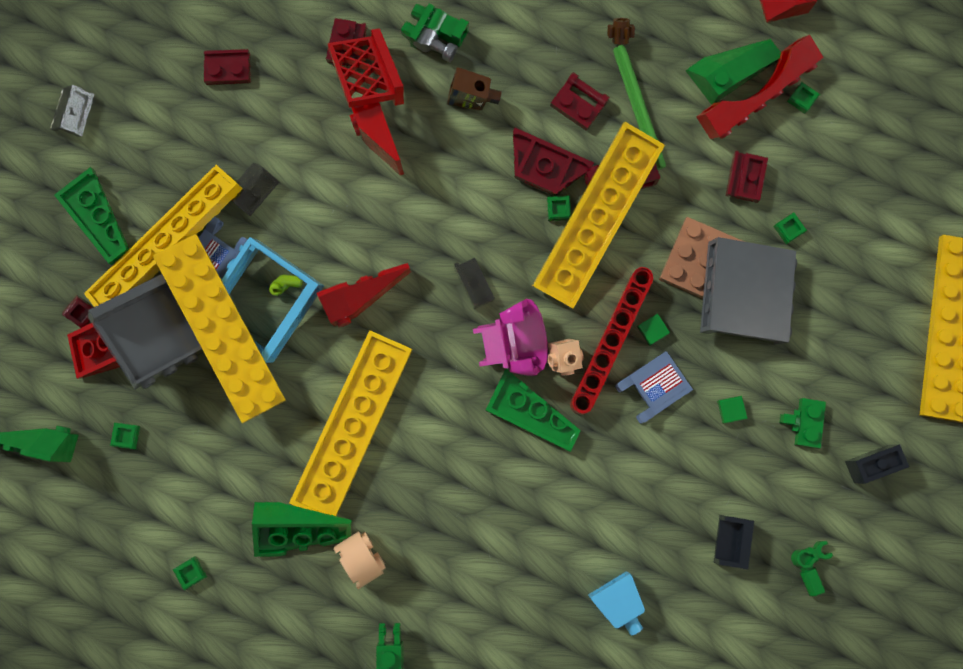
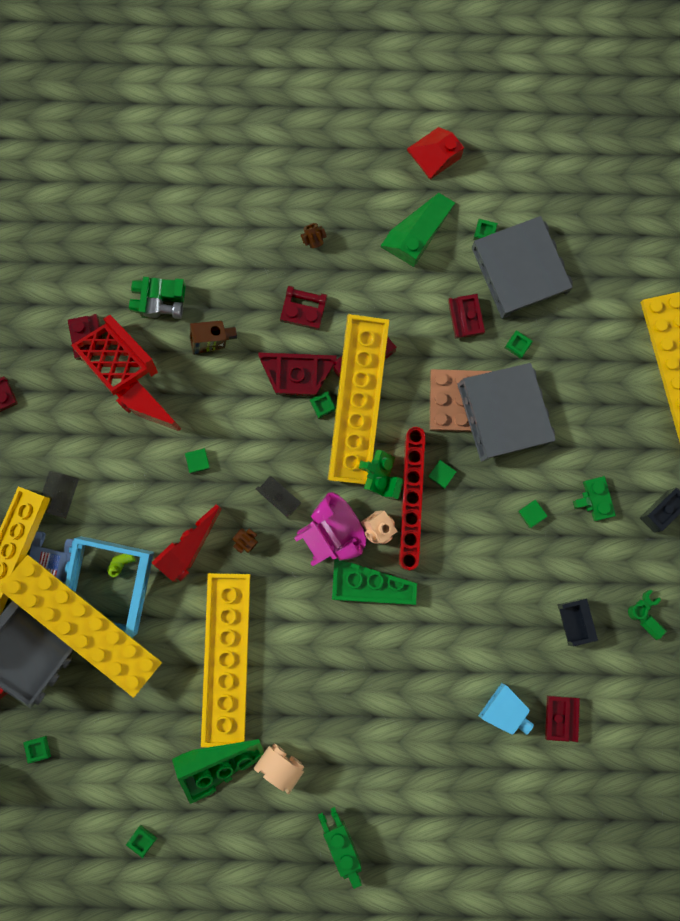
camera: 25 degrees left, 0 degrees up
(406, 212) = (197, 460): none -> green tile
(421, 312) = (245, 540): none -> reddish brown gear
(588, 299) = (378, 472): none -> green hinge
(596, 322) = (393, 488): none -> green tile
(635, 97) = (349, 287): bright green axle -> none
(658, 384) = (465, 518): sand blue flag -> none
(675, 635) = (562, 718): none -> dark red plate
(793, 61) = (466, 204): red arch -> none
(827, 147) = (521, 266): none -> dark grey panel

